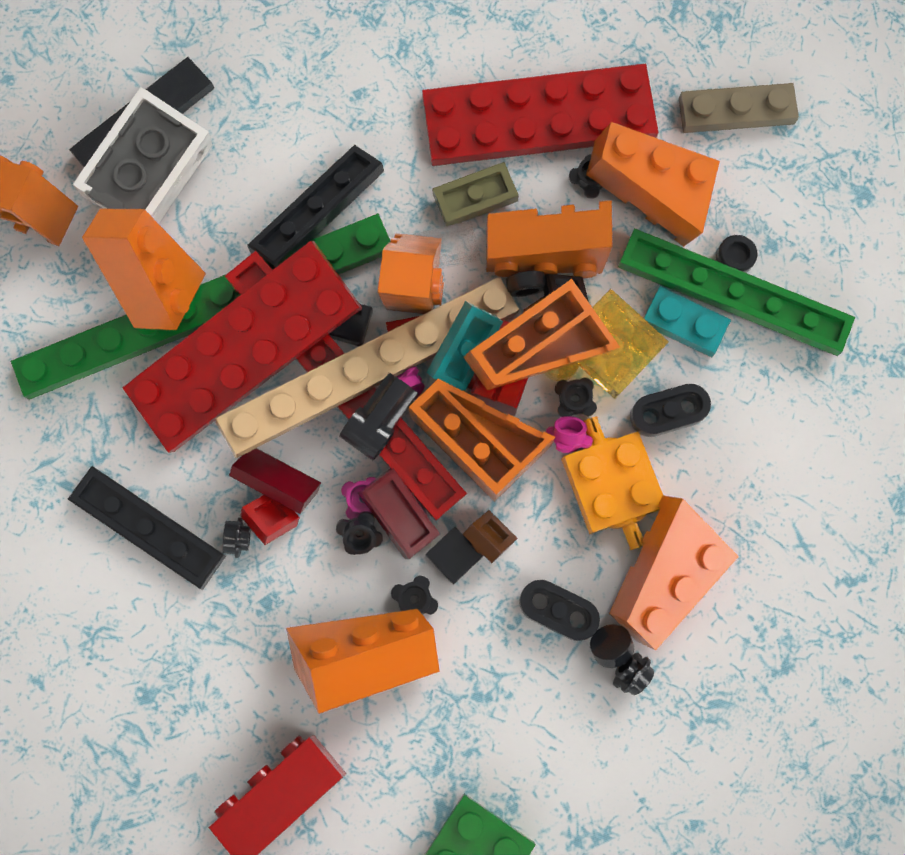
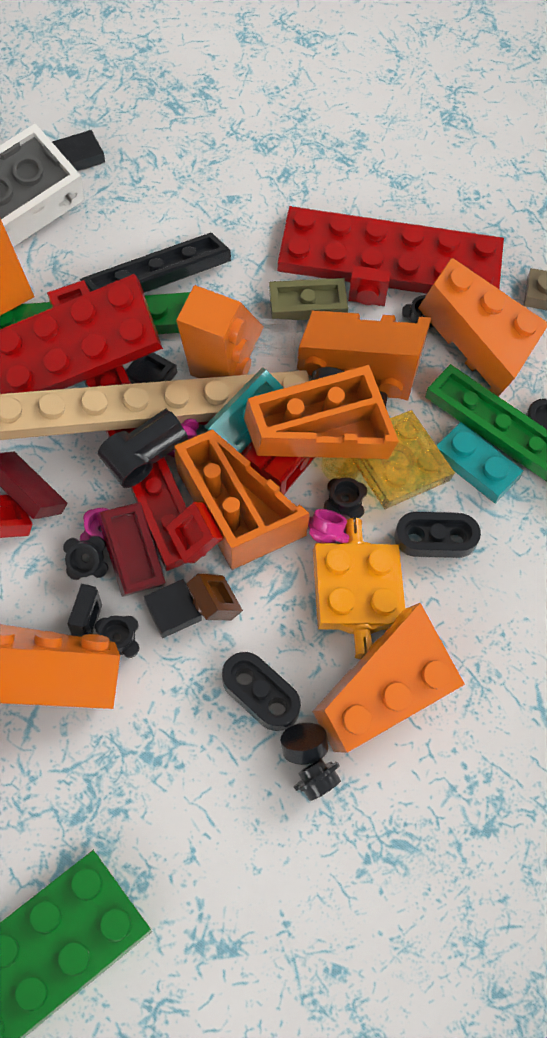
camera: 15 degrees right, 15 degrees down
(380, 588) = (85, 611): none -> black tile
(455, 485) = (194, 532): none -> red plate
(531, 162) = (369, 285): none -> red plate

